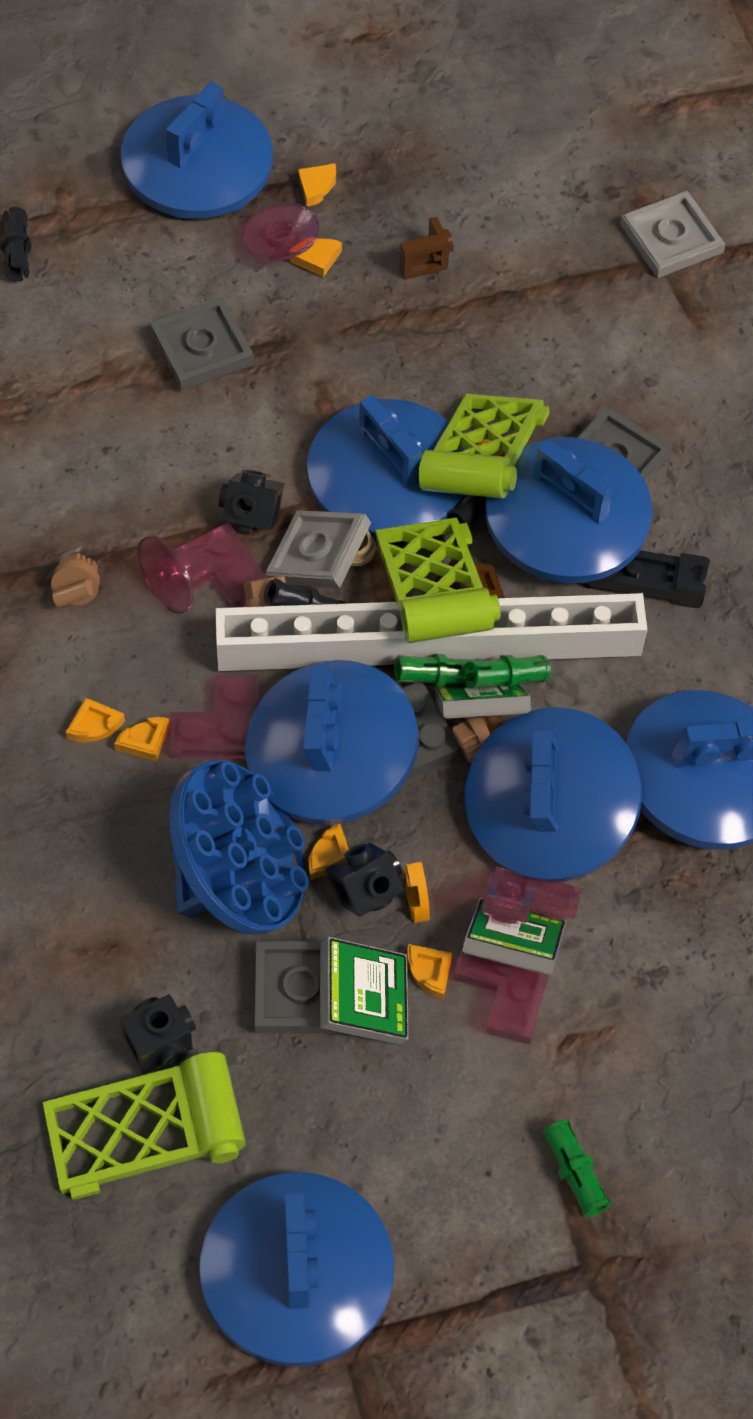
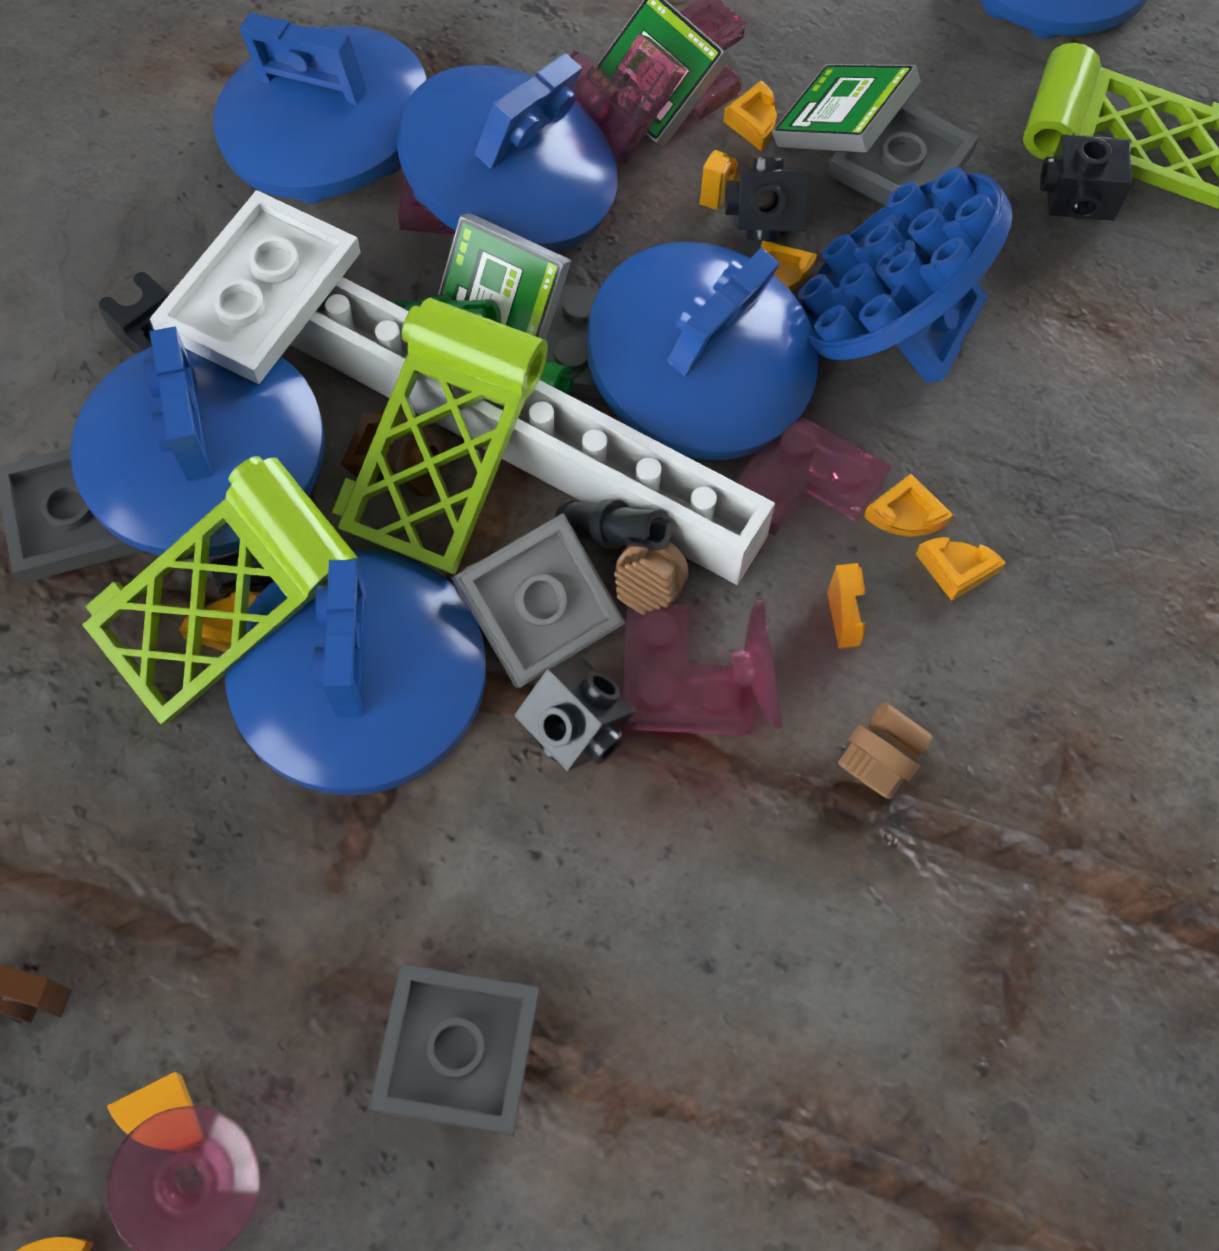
camera: 145 degrees left, 5 degrees up
(146, 653) = (842, 593): none -> light orange tile
(606, 582) = (257, 286): none -> white plate

